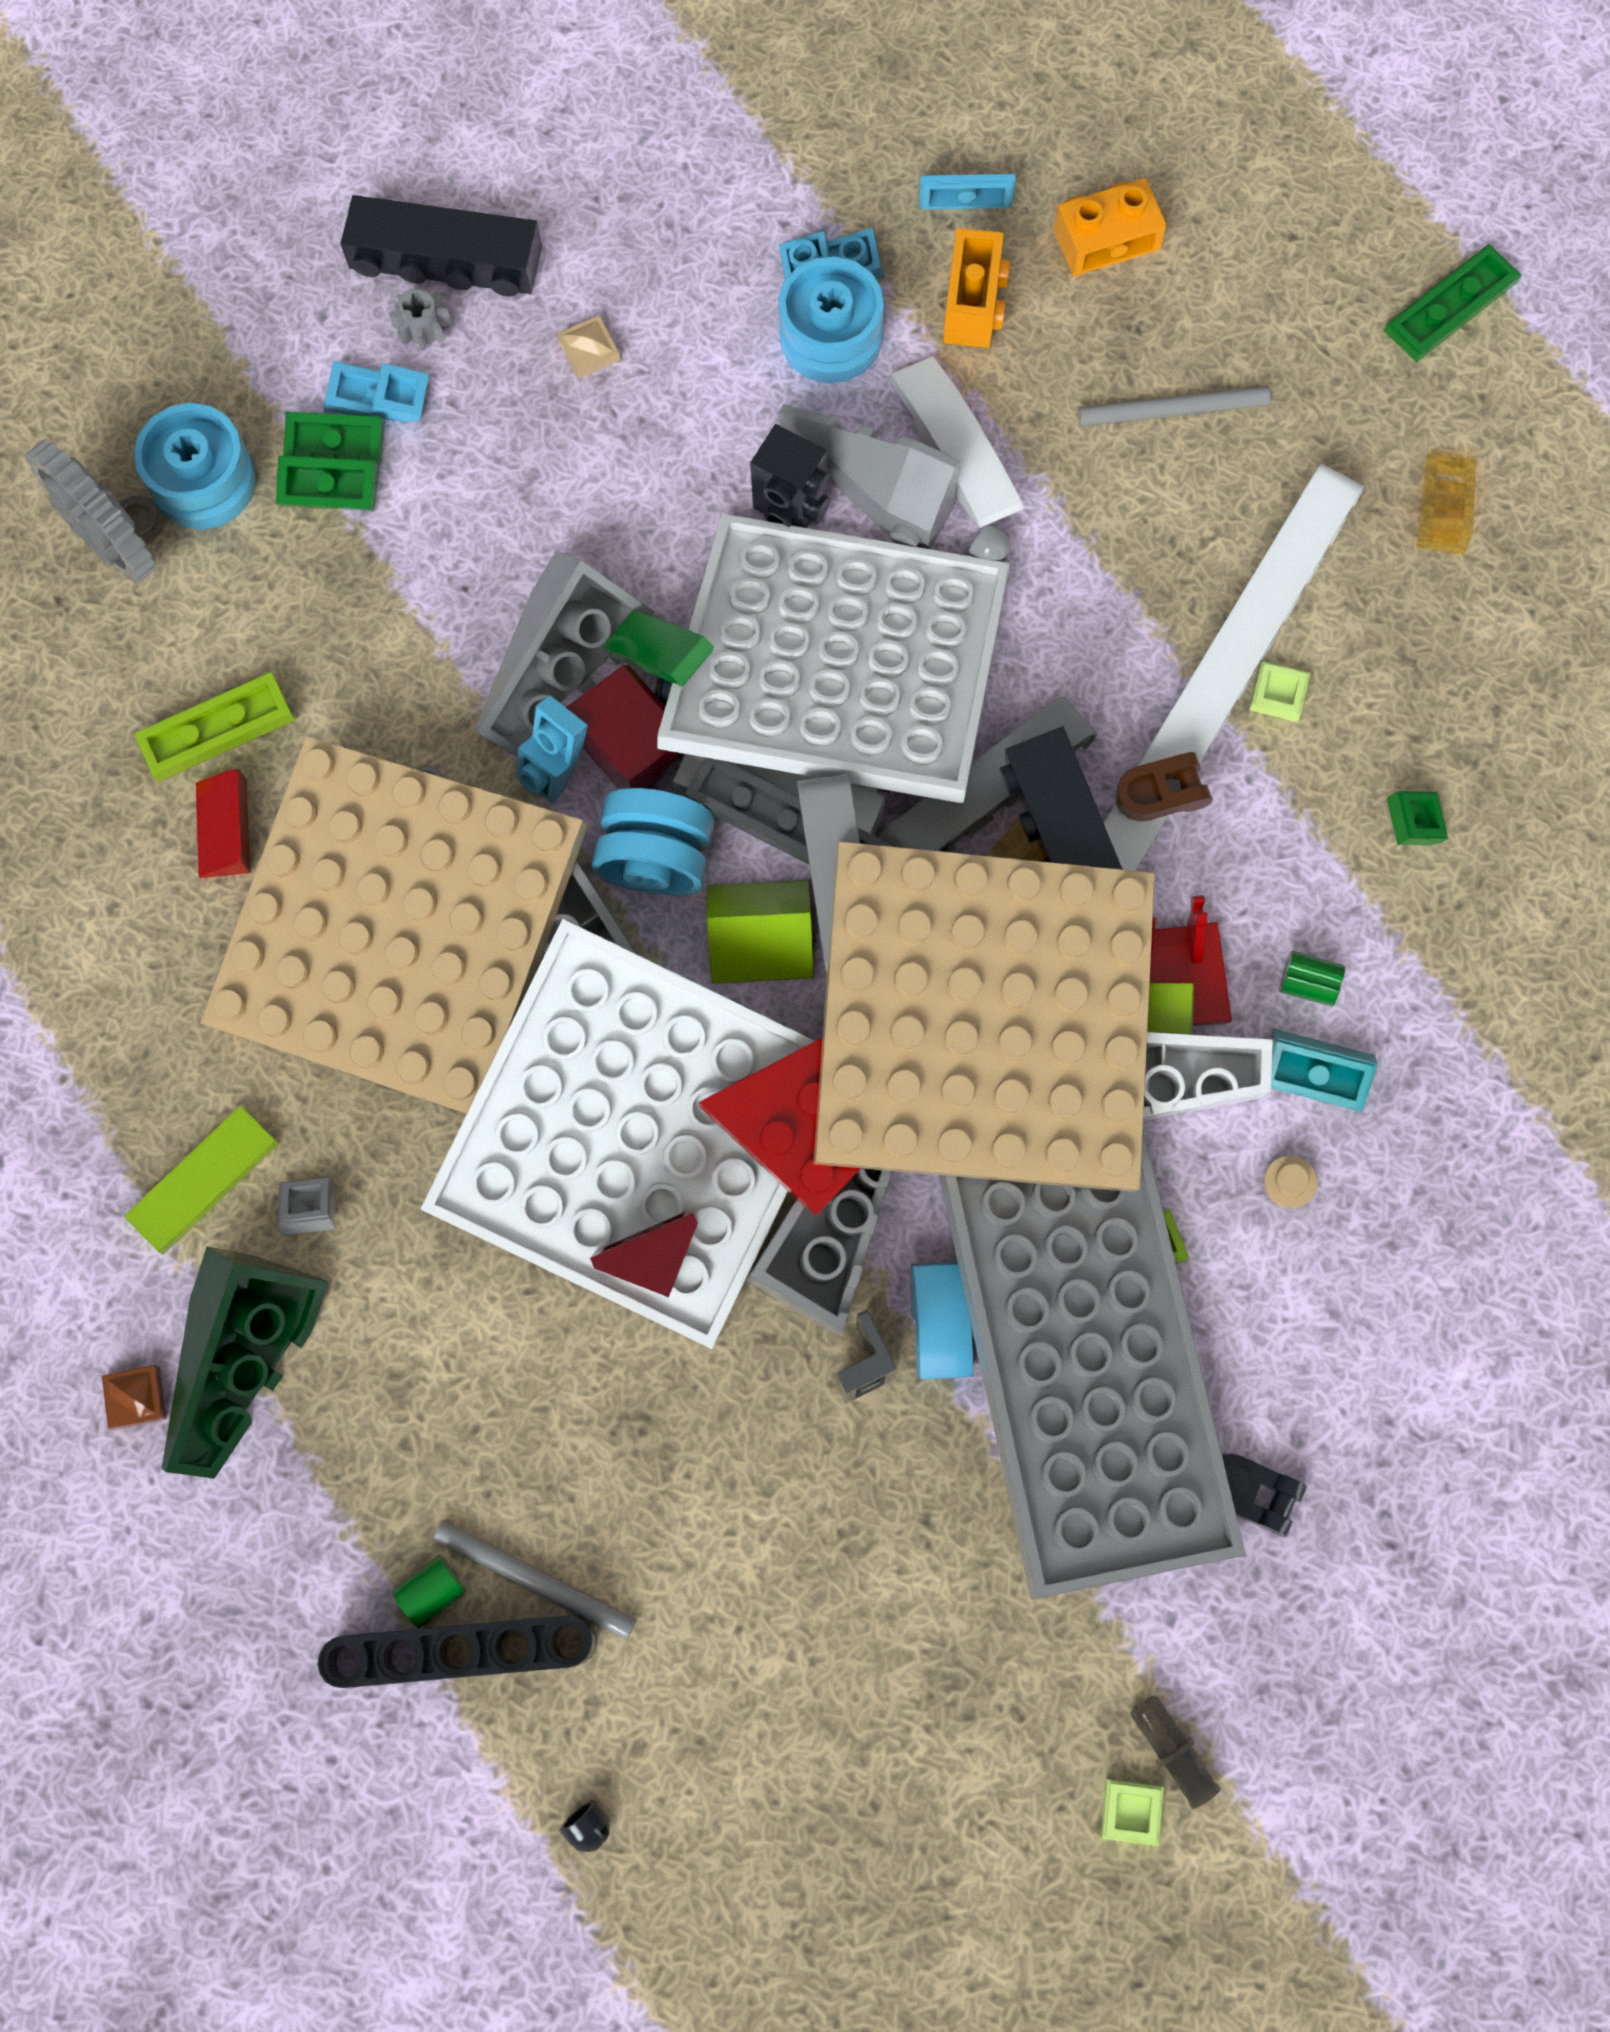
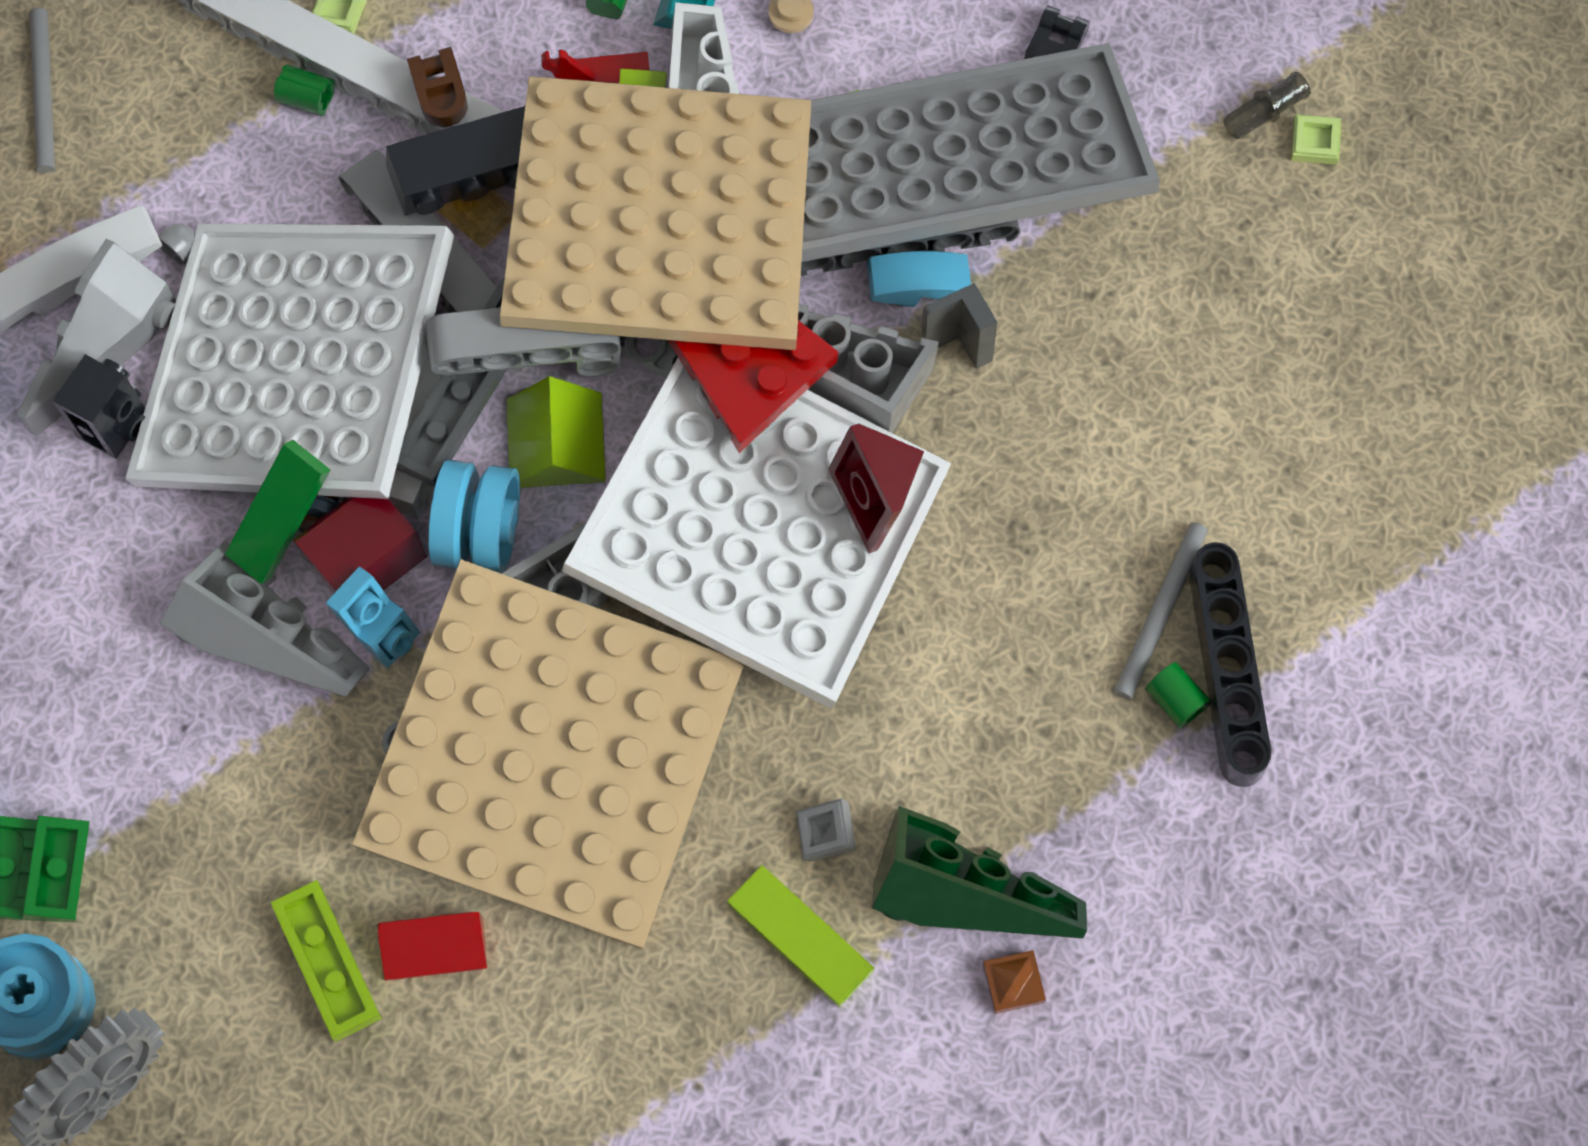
camera: 90 degrees left, 5 degrees down
(586, 1827) = (1371, 549): black hinge -> none
(1174, 659) = (304, 90): none -> green piece

